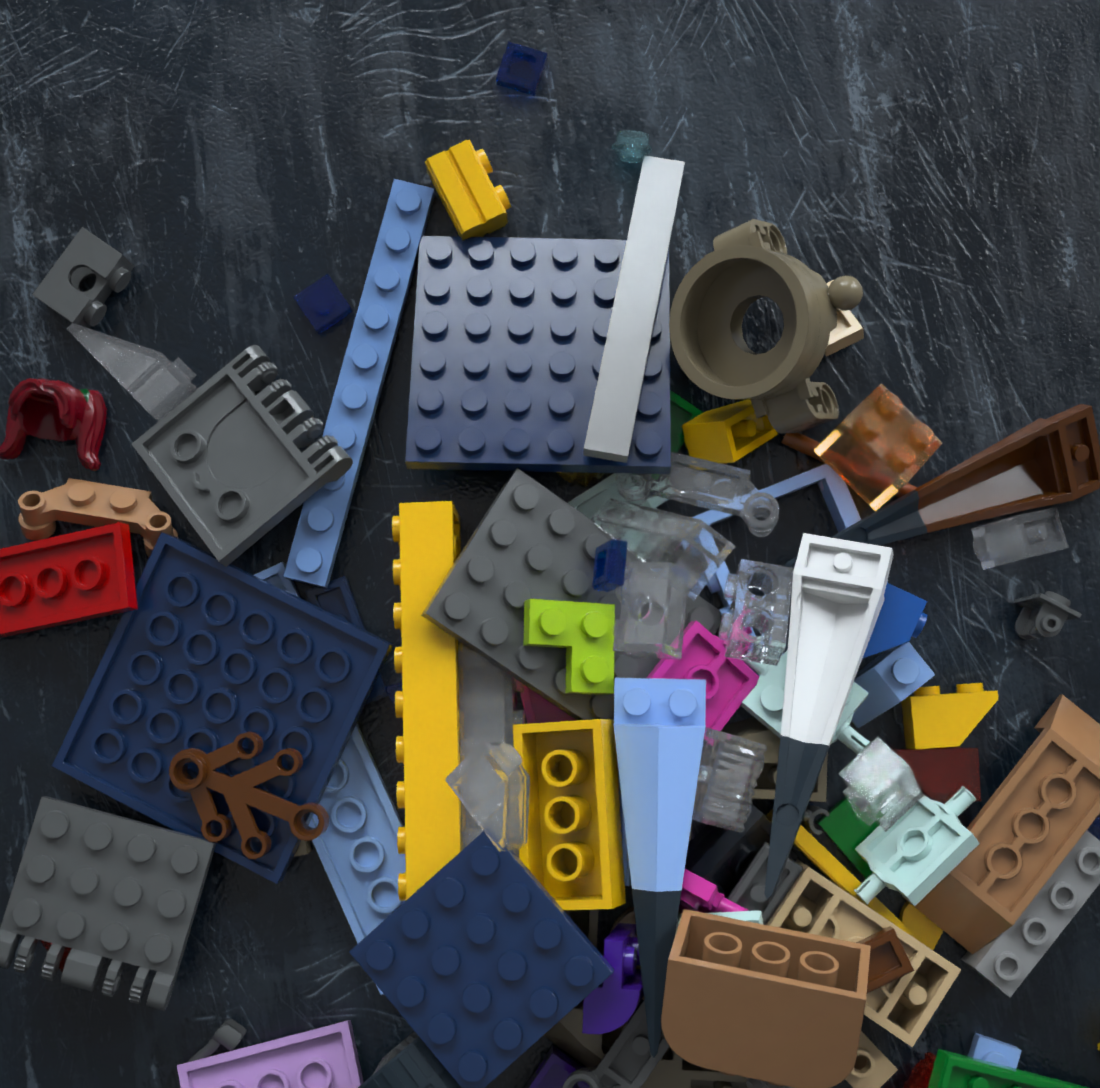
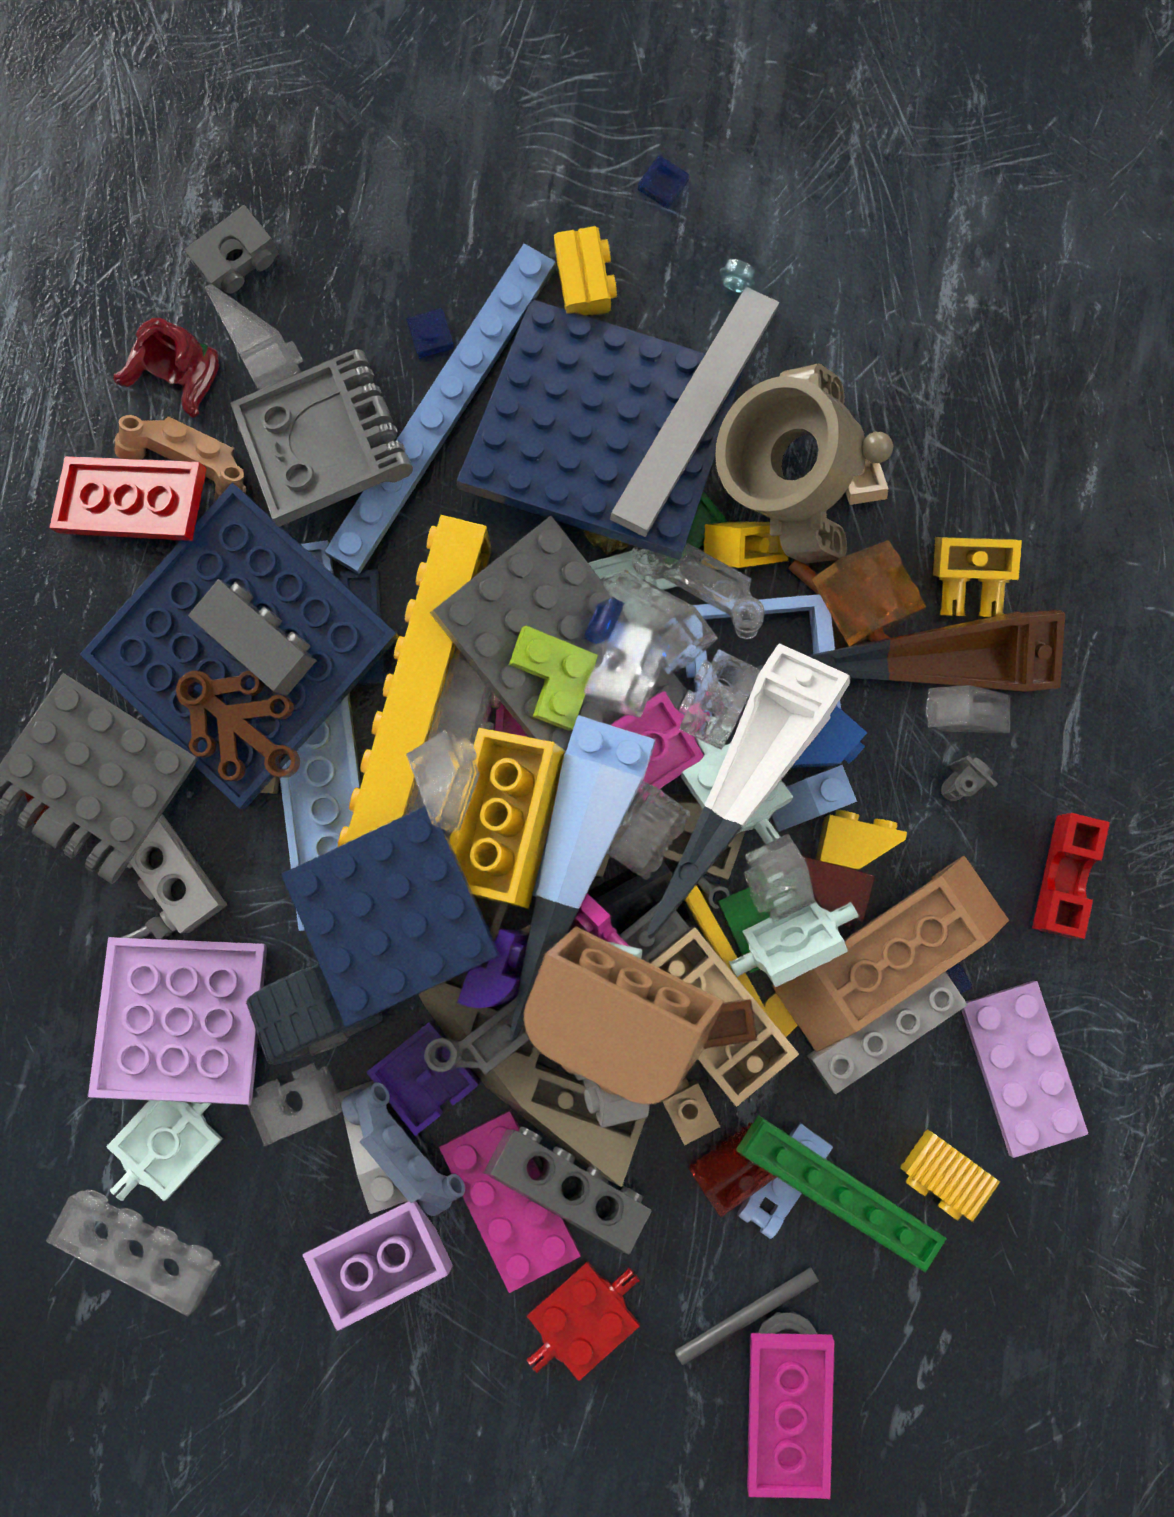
camera: 15 degrees right, 0 degrees up
(231, 962) = (201, 896): none -> light grey brick
(236, 695) = (253, 636): none -> dark grey brick
(979, 374) = (966, 558): none -> yellow brick

